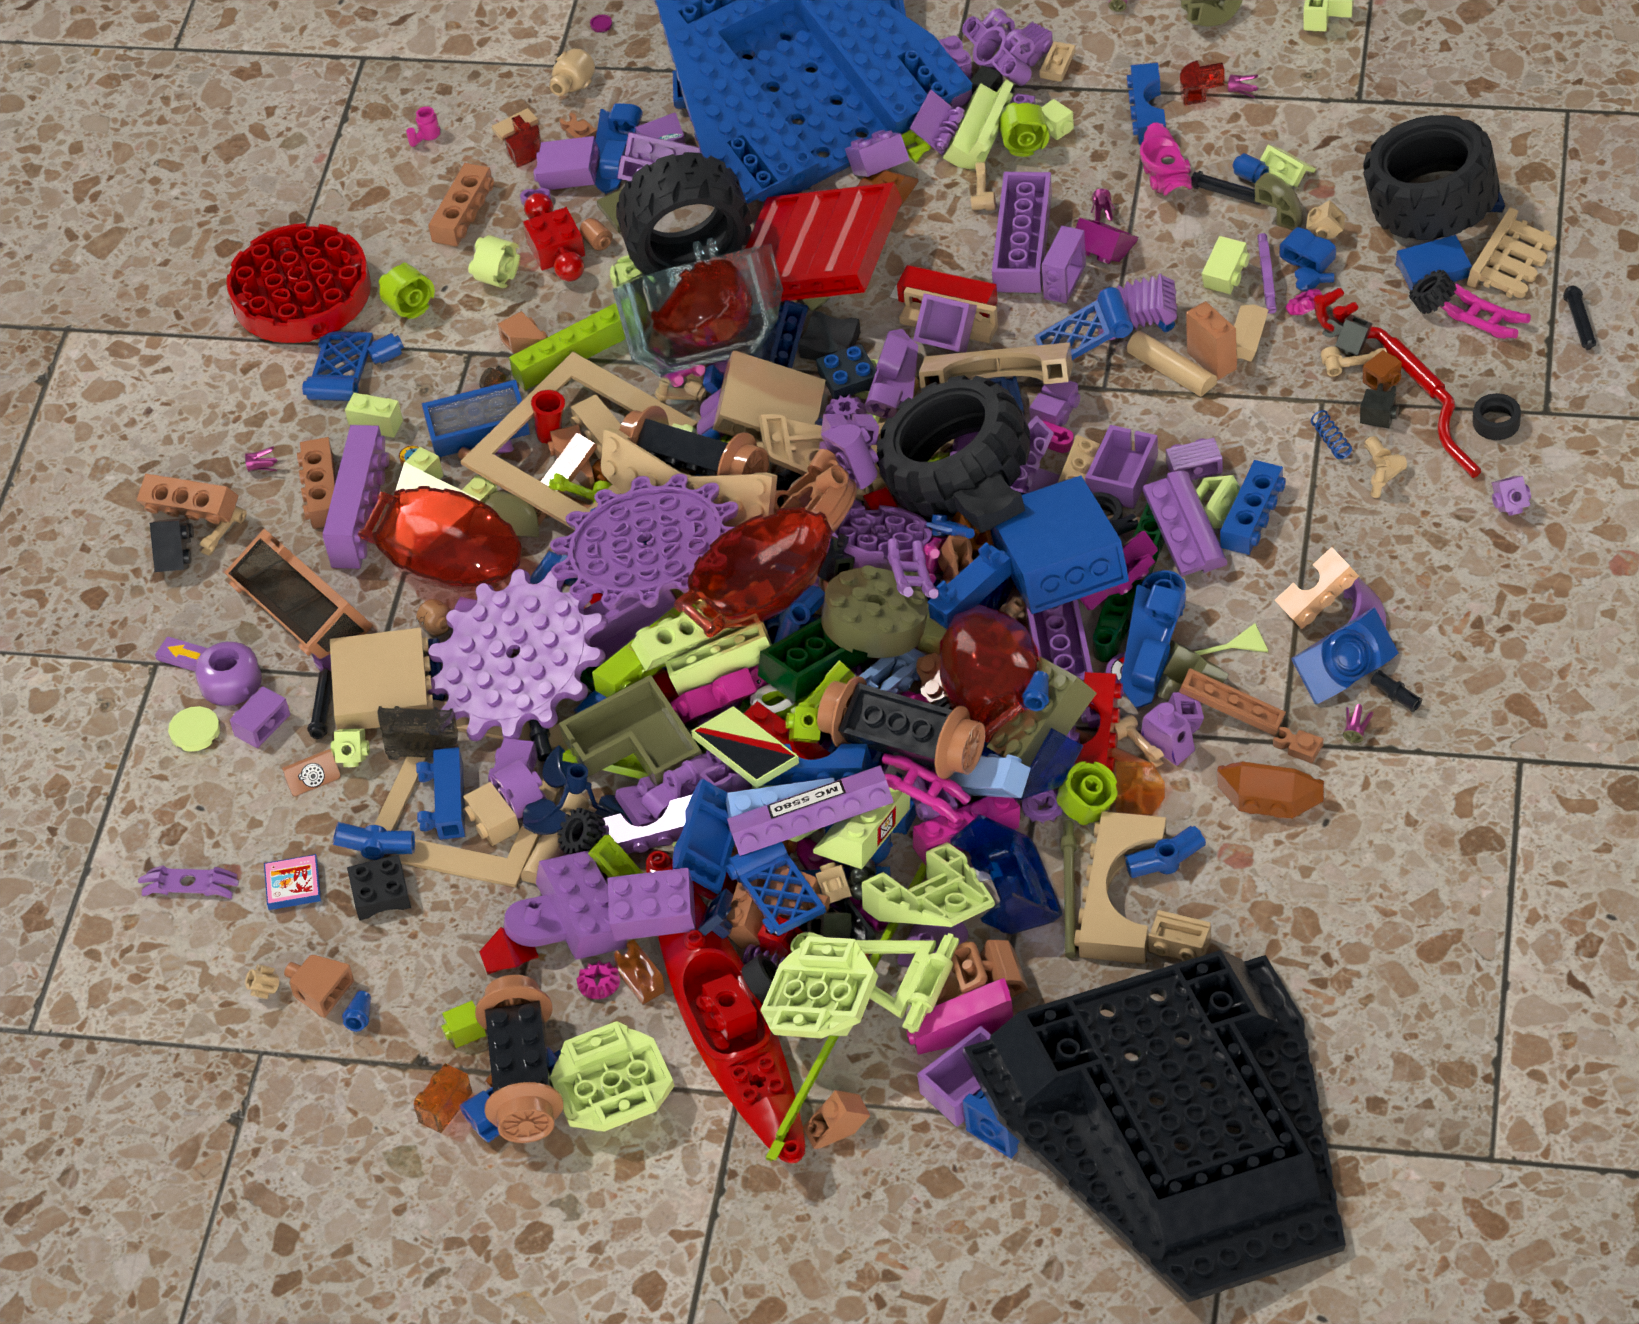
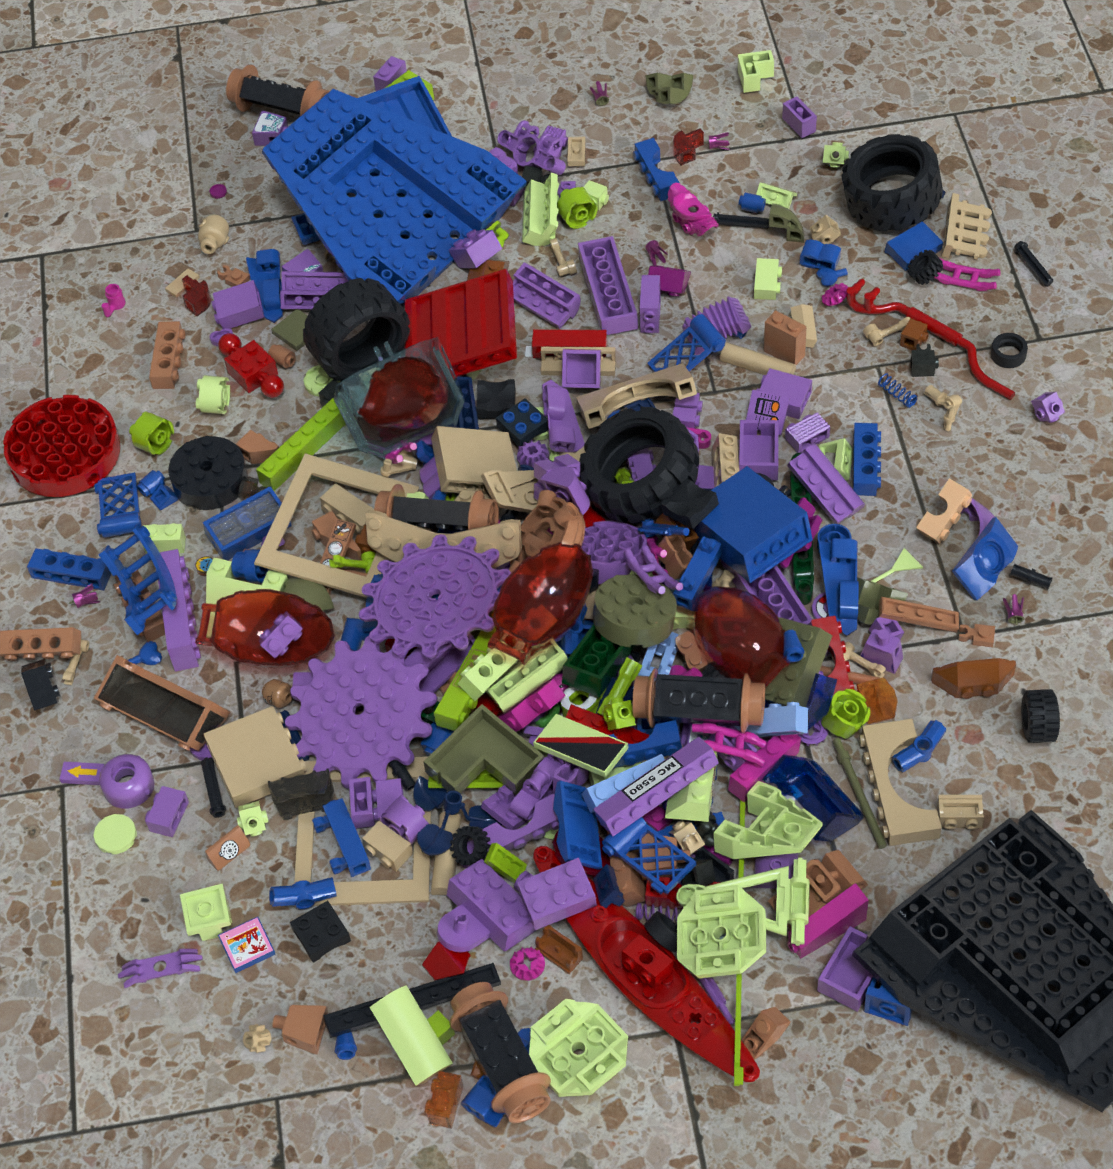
camera: 20 degrees left, 5 degrees up
(254, 425) = (68, 569): none -> blue brick
(259, 833) = (206, 911): none -> yellowish green panel
(306, 541) = (148, 655): none -> blue rock
(344, 470) = (136, 610): none -> blue fence
(395, 368) = (163, 497): none -> blue slope
(428, 1017) = (411, 1035): none -> yellowish green brick
(436, 984) = (425, 996): none -> black tile
(450, 467) = (244, 567): none -> blue piece
(453, 349) = (207, 472): none -> black brick
(467, 545) = (280, 634): none -> medium lavender brick
(479, 757) = (361, 802): none -> medium lavender brick
(548, 413) = (306, 506): red plant -> none
(797, 1061) = (717, 997): none -> medium lavender axle
(937, 122) = (511, 215): medium lavender hinge -> none
(938, 228) = (544, 296): none -> medium lavender brick
(1155, 418) = (767, 407): none -> medium lavender tile
(1186, 407) = (790, 386): none -> medium lavender brick
(1266, 271) = (796, 275): medium lavender piece -> none
(1322, 849) = (1040, 716): none -> black tyre
(1351, 333) = (881, 311): pearl dark grey brick -> none
(1357, 73) = (799, 117): none -> medium lavender brick
(1378, 126) = (828, 156): none -> yellowish green brick

